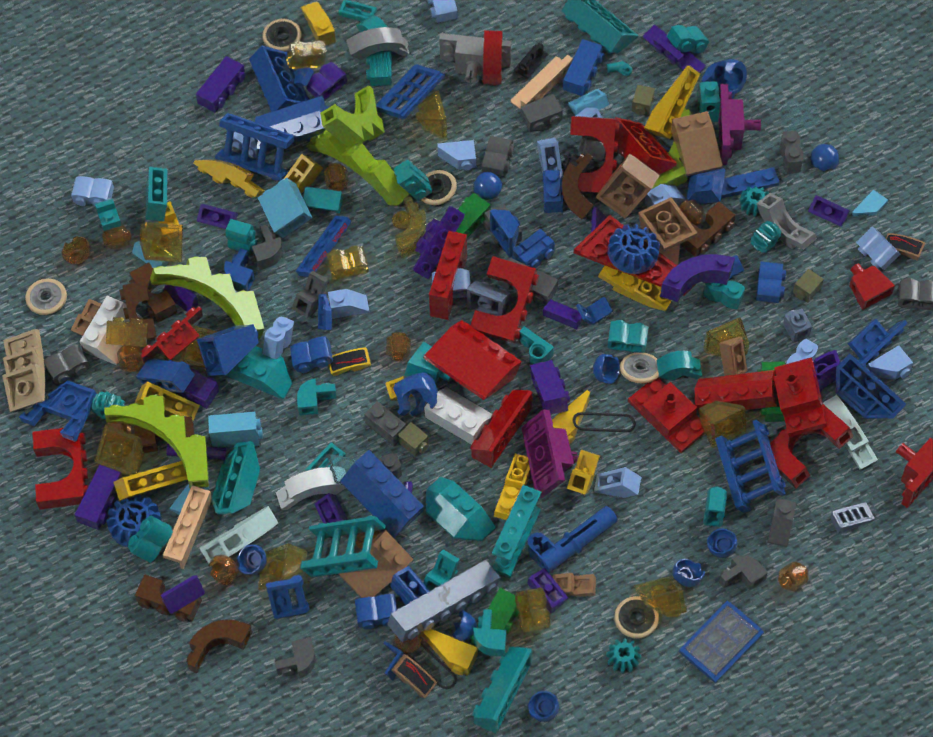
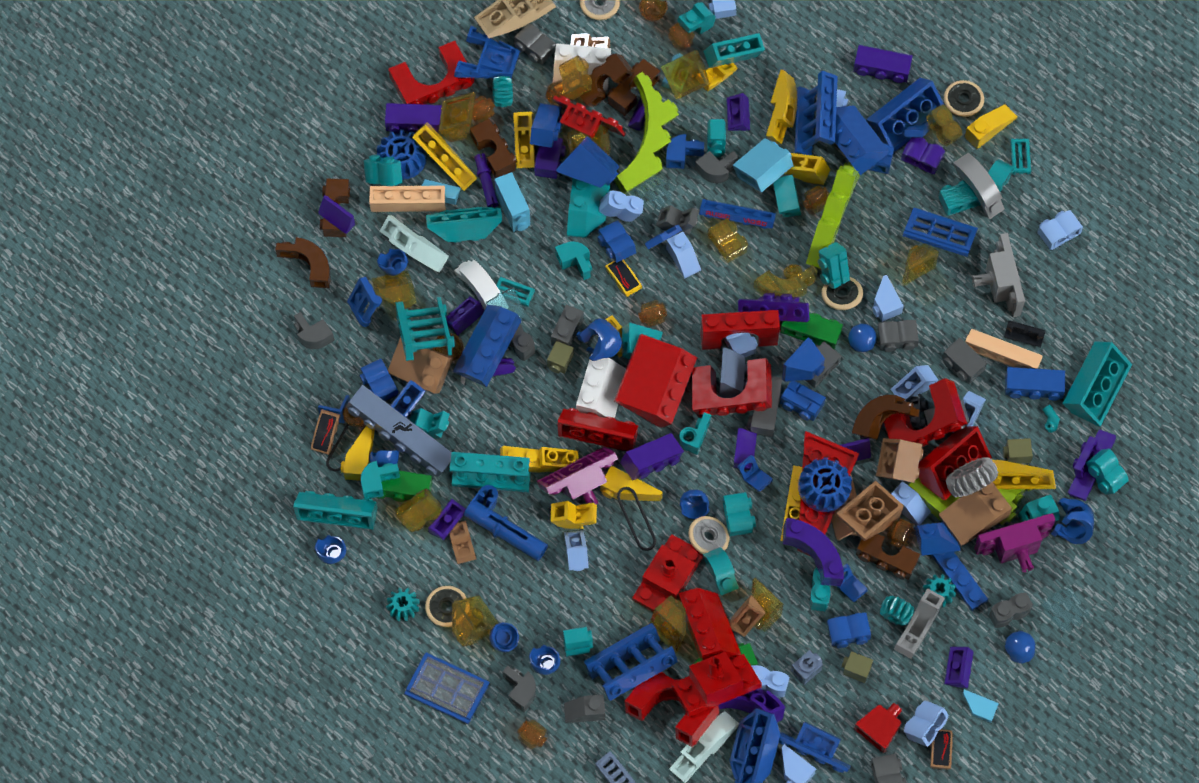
camera: 70 degrees right, 5 degrees up
(172, 429) = (477, 171): lime arch -> none
(223, 569) = (378, 242): clear orange hair -> none
(355, 127) = (884, 202): lime arch -> none
(457, 511) = (499, 417): teal wedge -> none
(492, 57) = (995, 288): red arch -> none
(552, 191) = (867, 394): blue brick -> none
(594, 99) = (997, 402): medium azure slope -> none
(670, 129) = (972, 477): none -> light grey gear

